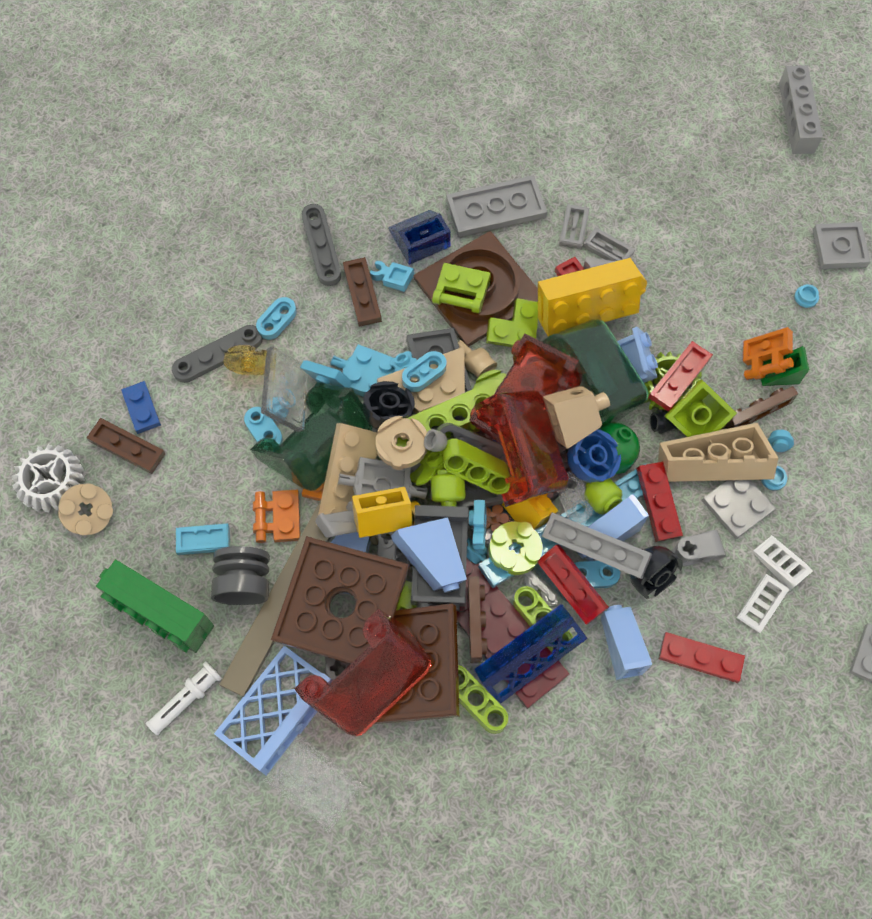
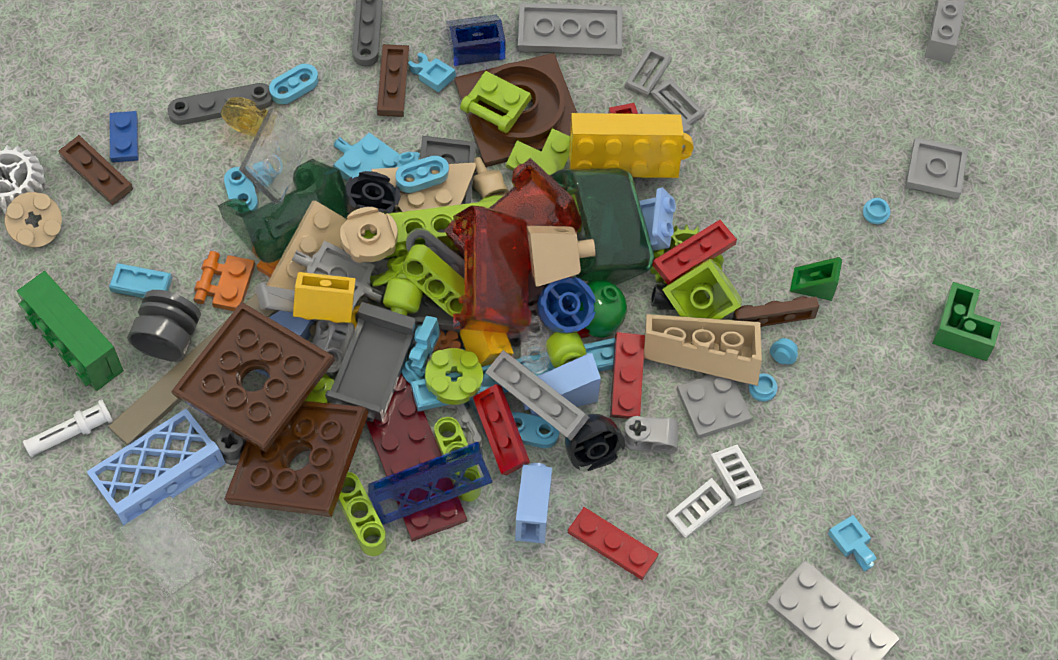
camera: 15 degrees right, 5 degrees down
(325, 374) = (322, 152): medium azure plate -> none
(373, 680) = (255, 453): clear red windscreen -> none
(432, 553) = (363, 353): light blue slope -> none
(435, 440) = (402, 241): light grey hinge -> none
(477, 619) = (386, 434): reddish brown plate -> none
(766, 347) = (803, 251): orange plate -> none

